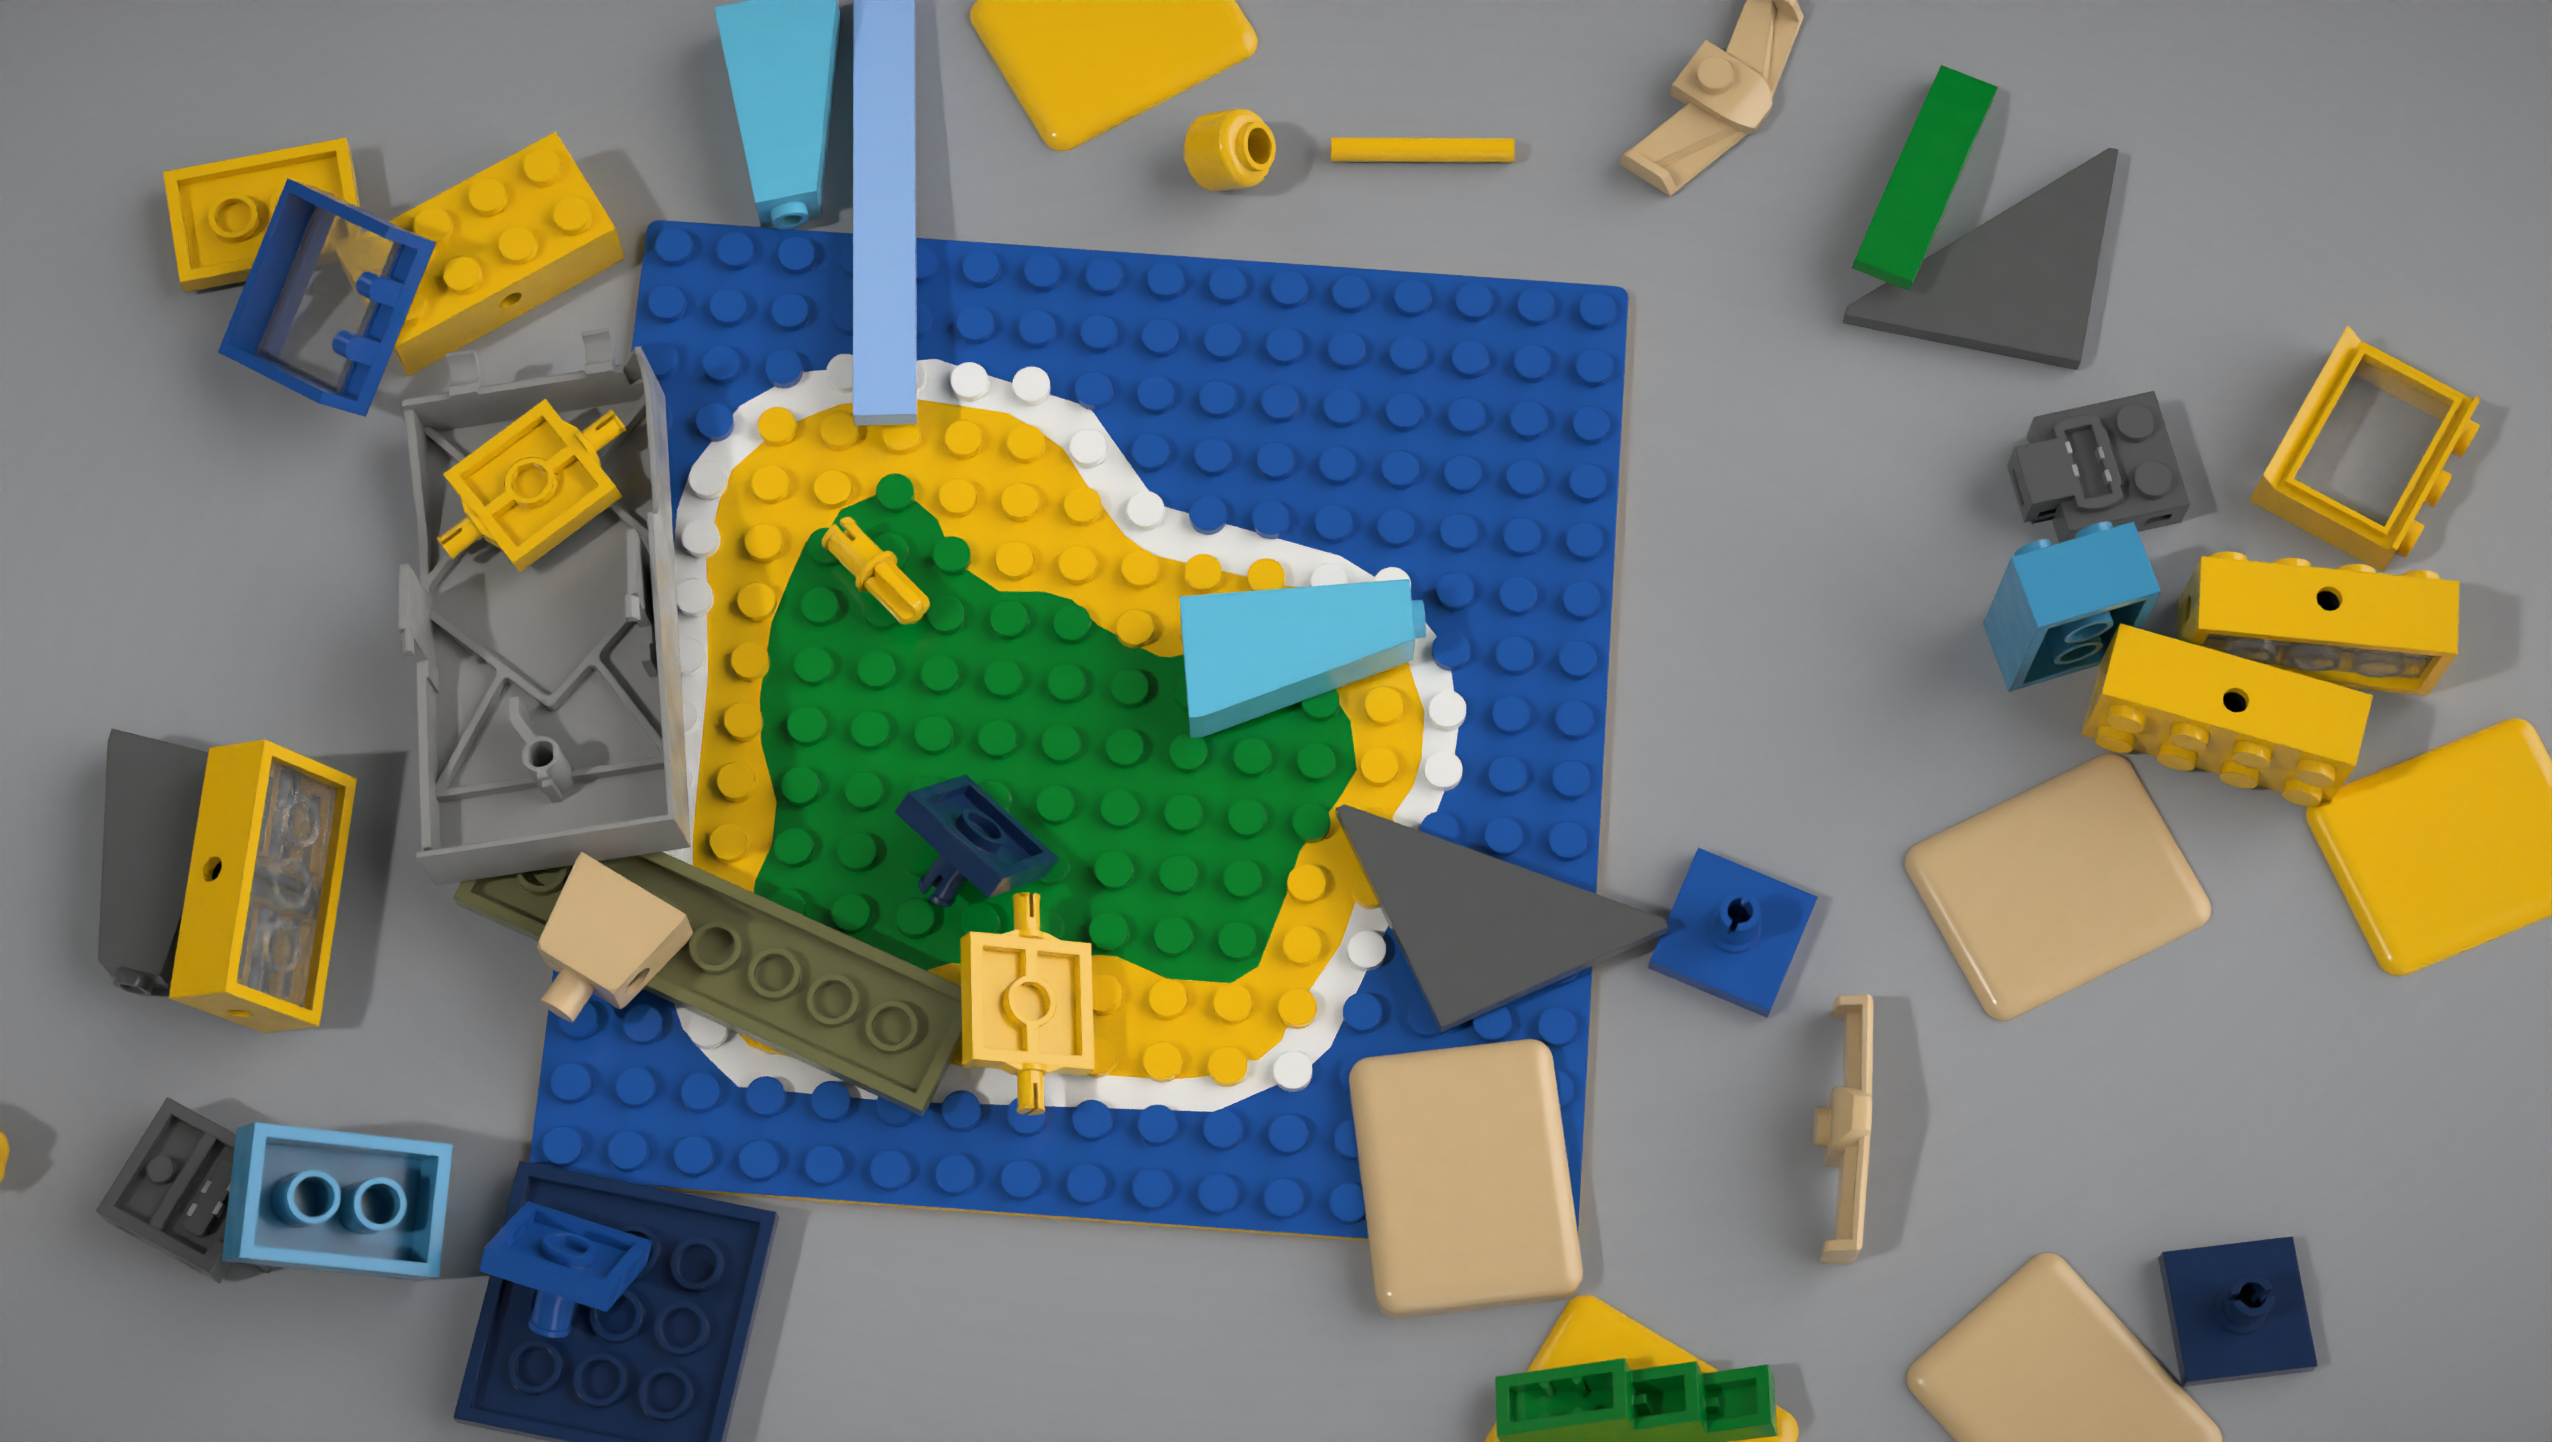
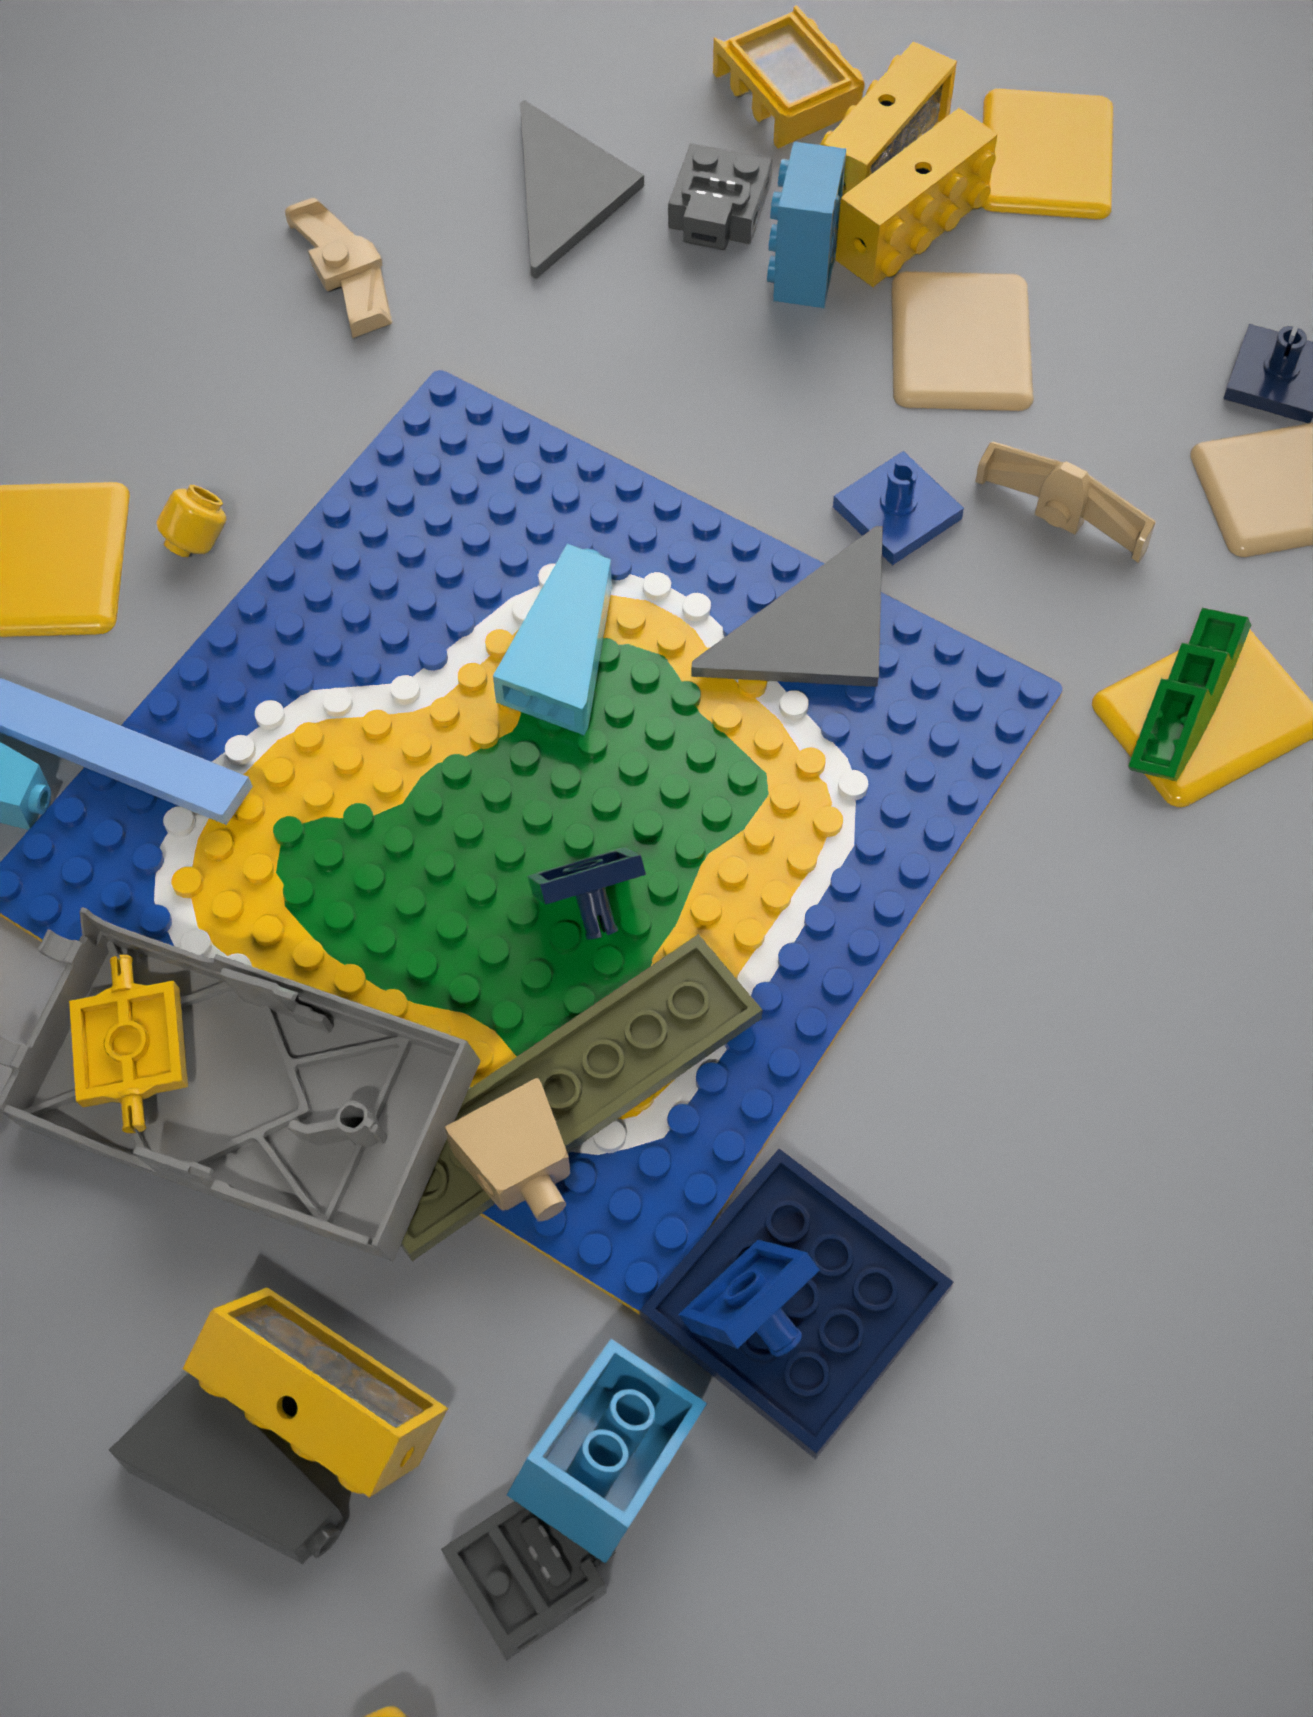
camera: 60 degrees left, 10 degrees down
(876, 571) = (343, 860): yellow axle -> none
(1027, 1003) = (724, 905): yellow plate -> none
(1421, 149) = (265, 430): yellow bar -> none
(1465, 1179) = (983, 722): tan piece -> none
(1924, 178) = (480, 190): green slope -> none

